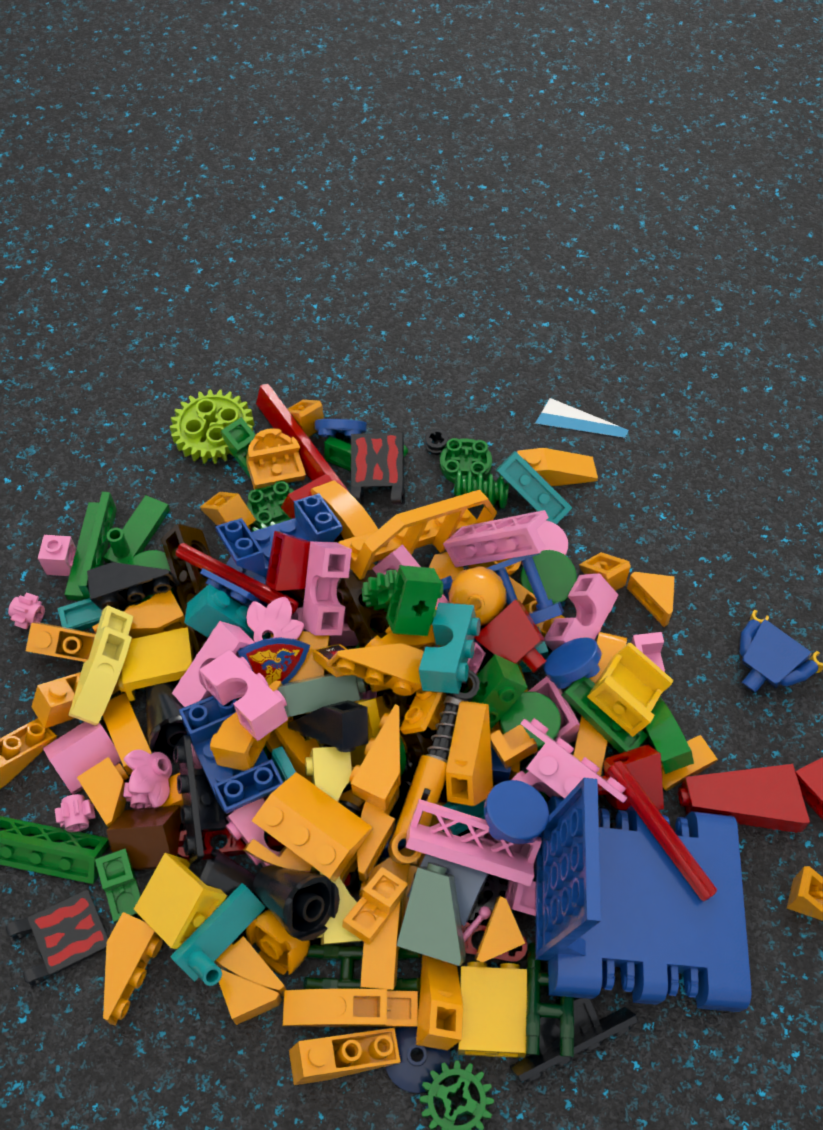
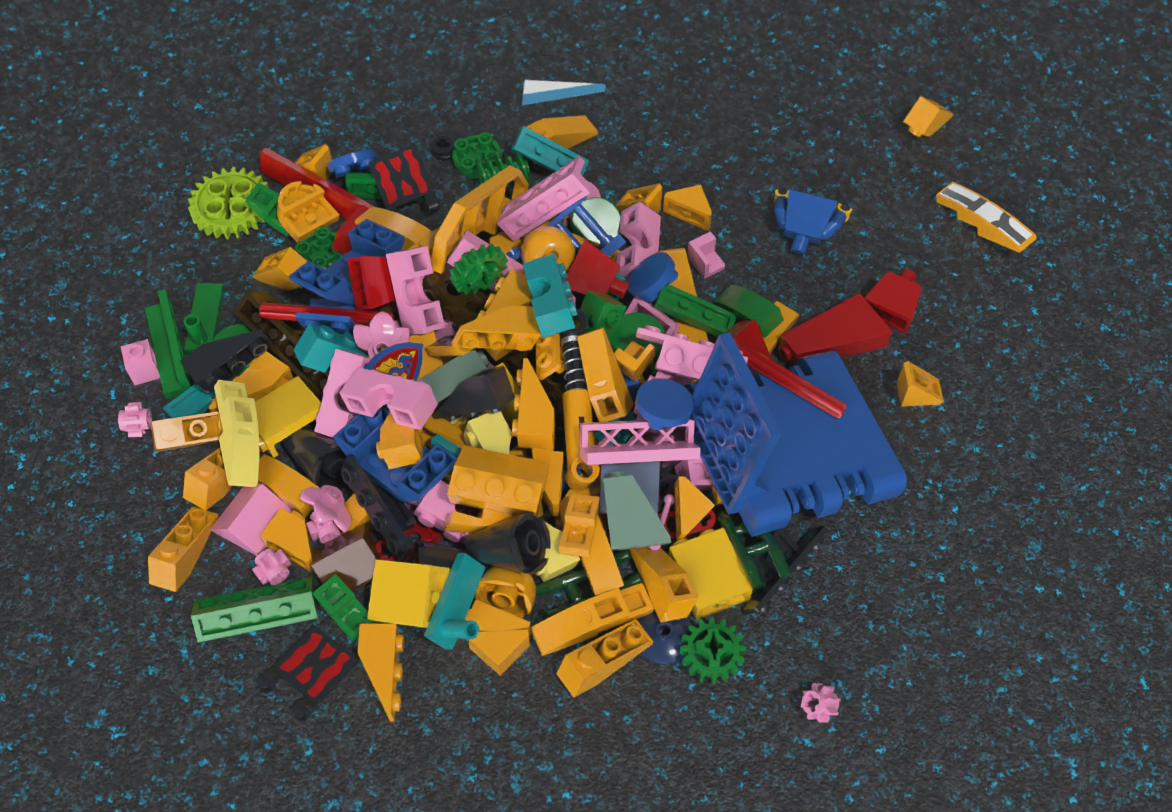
camera: 25 degrees left, 0 degrees up
(414, 600) = (503, 266): green brick -> none
(630, 689) = (707, 281): yellow panel -> none

